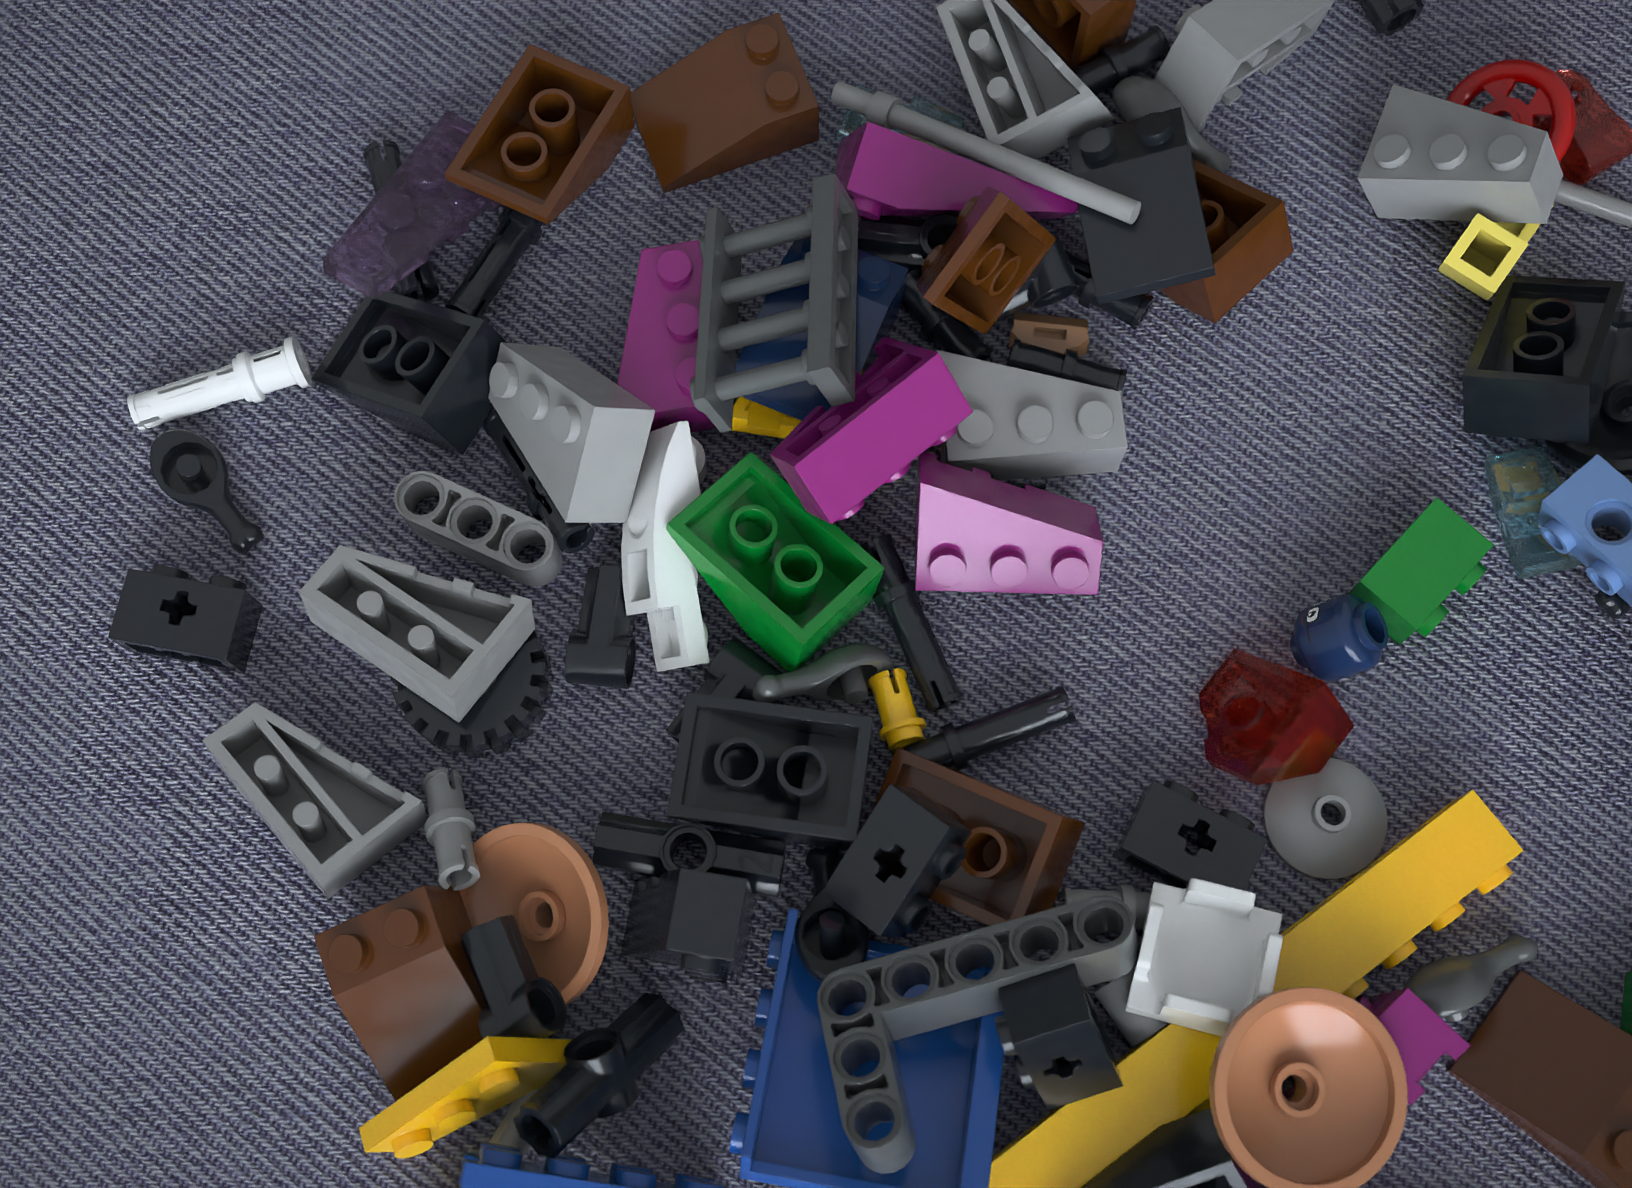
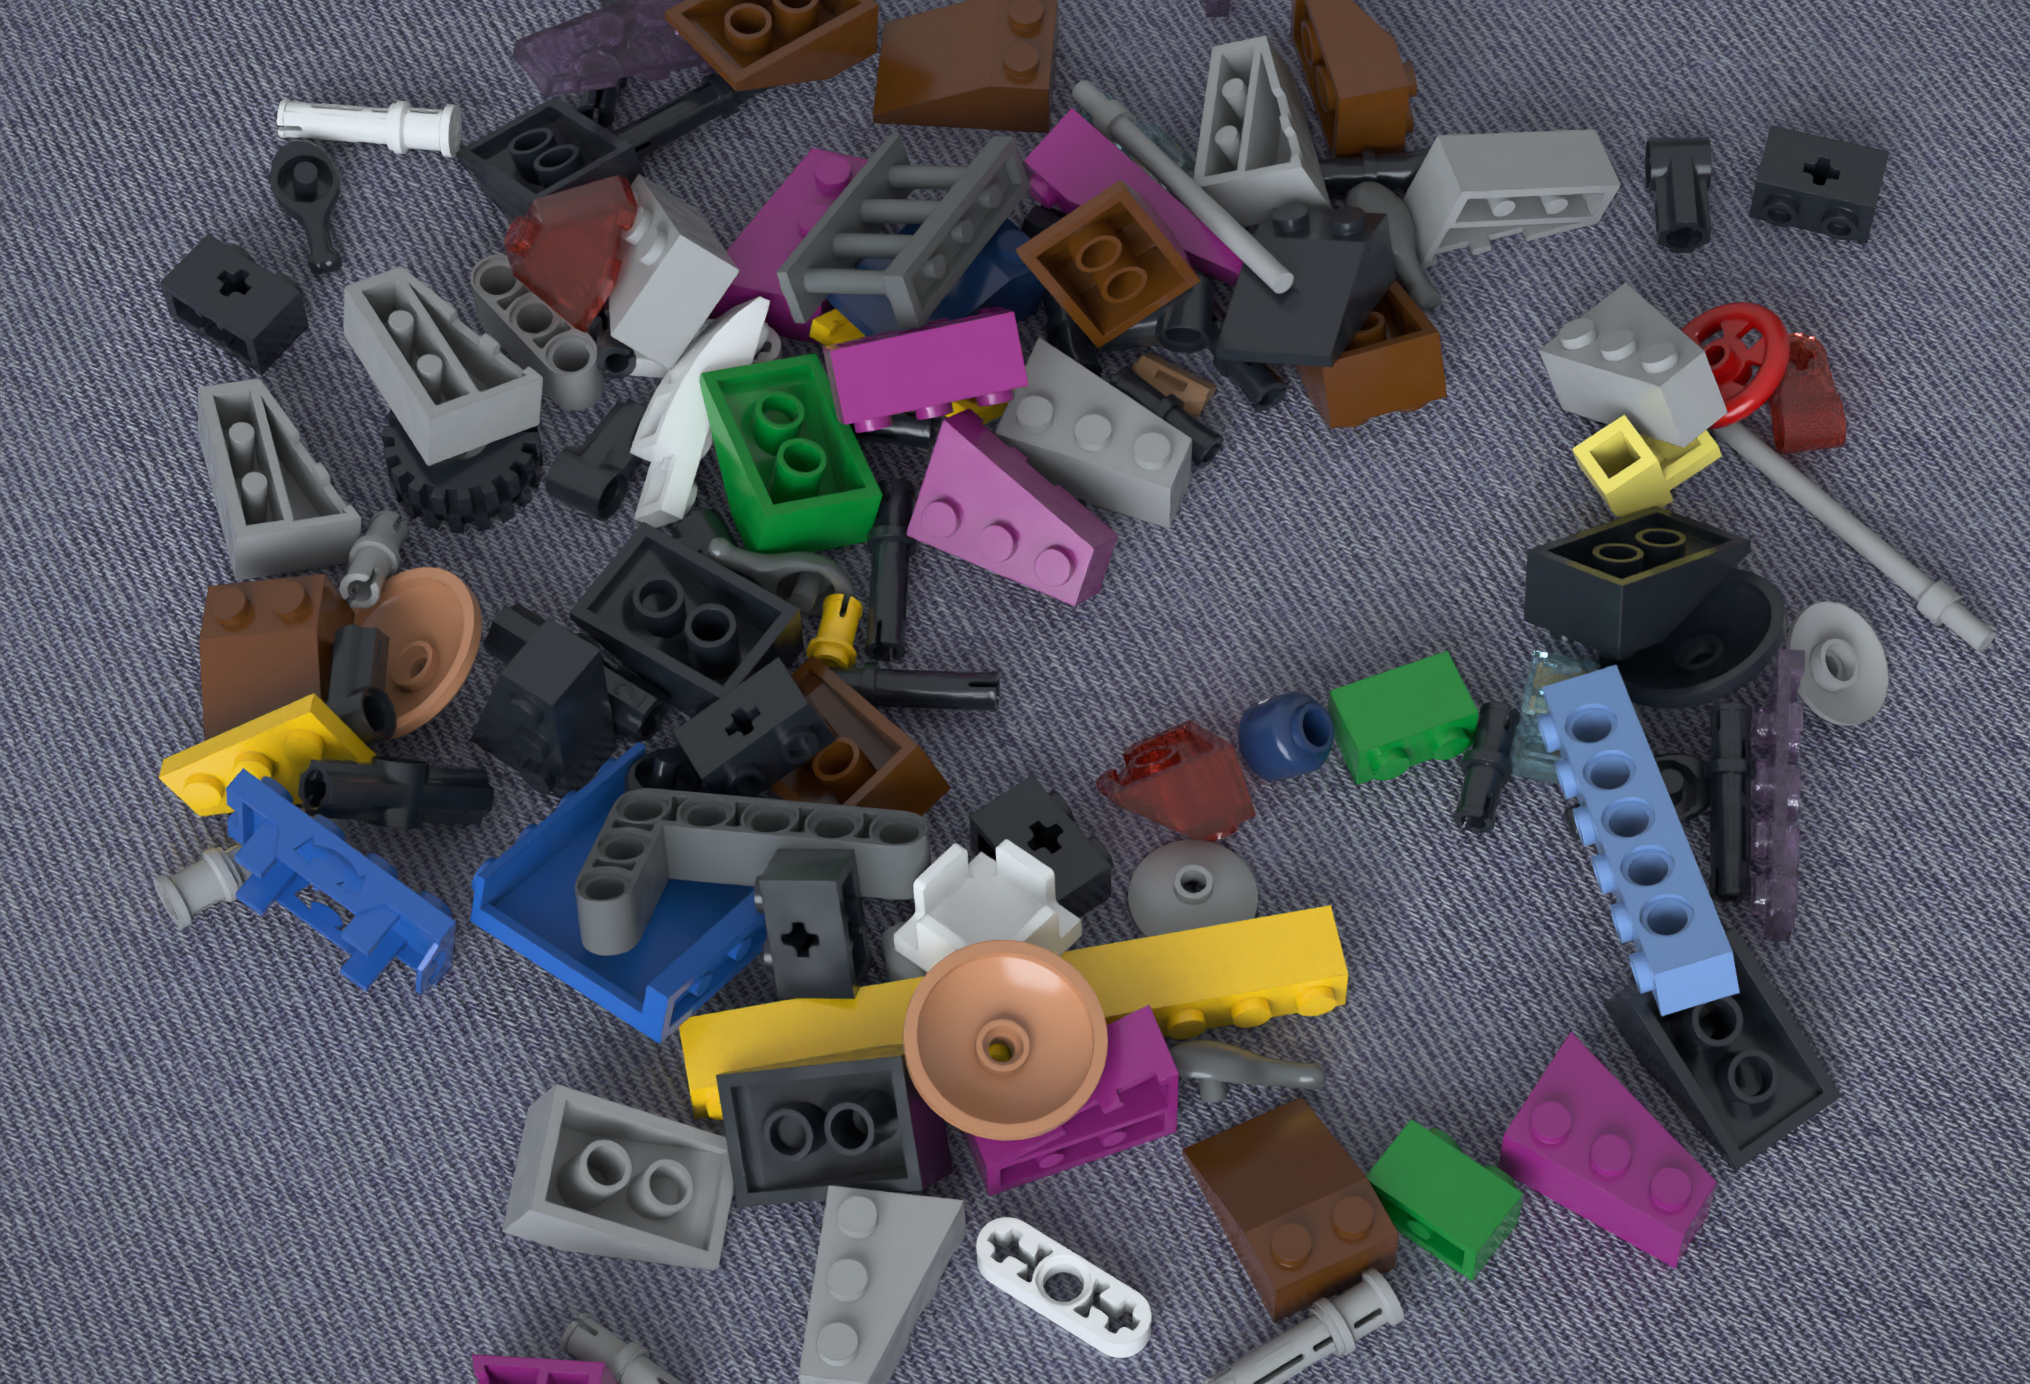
camera: 25 degrees right, 15 degrees down
(478, 444) = (570, 247): none -> clear red slope
(1510, 587) = (1486, 767): none -> black pin

